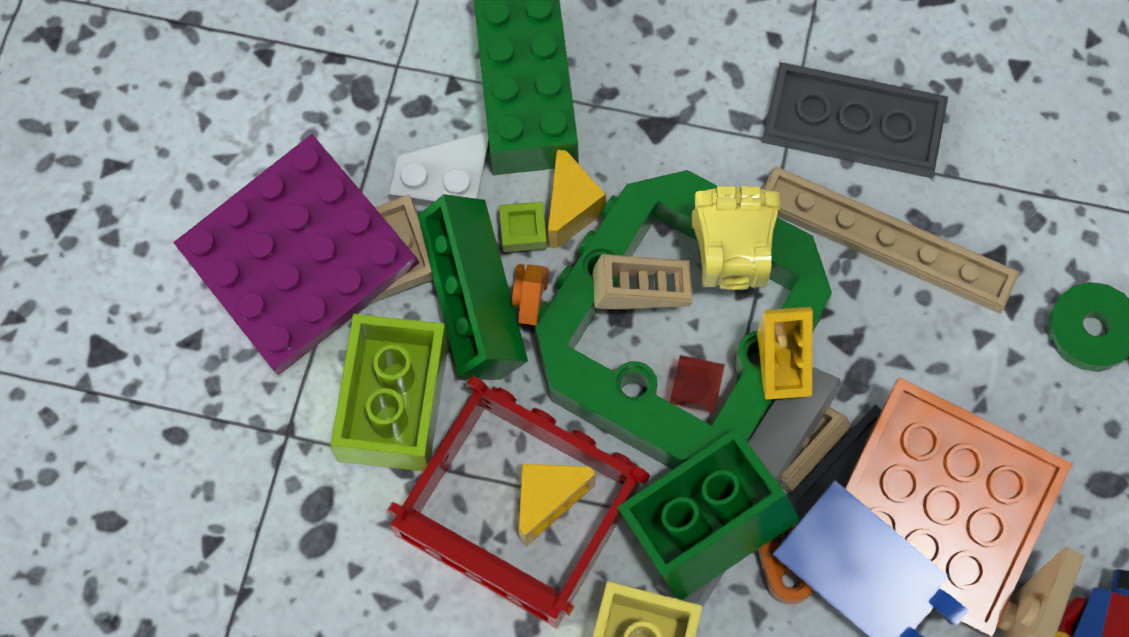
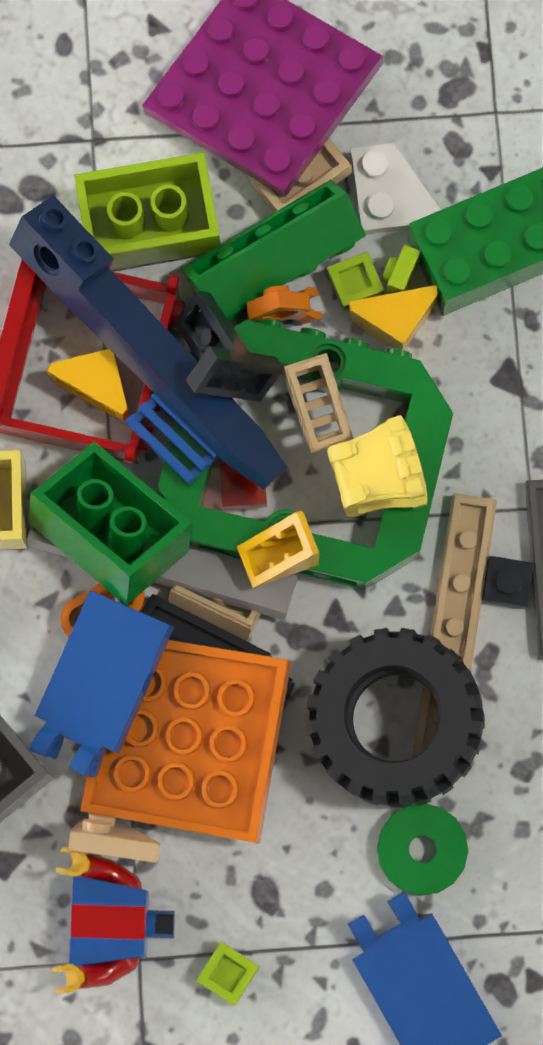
camera: 75 degrees right, 10 degrees up
(444, 465) = (81, 277): none -> dark blue piece
(529, 181) = (401, 270): none -> lime plate
(566, 351) = (223, 360): none -> black bracket
(659, 396) = (146, 410): none -> blue tile
(855, 178) = (507, 582): none -> black plate
(1009, 257) = (351, 674): none -> black tyre

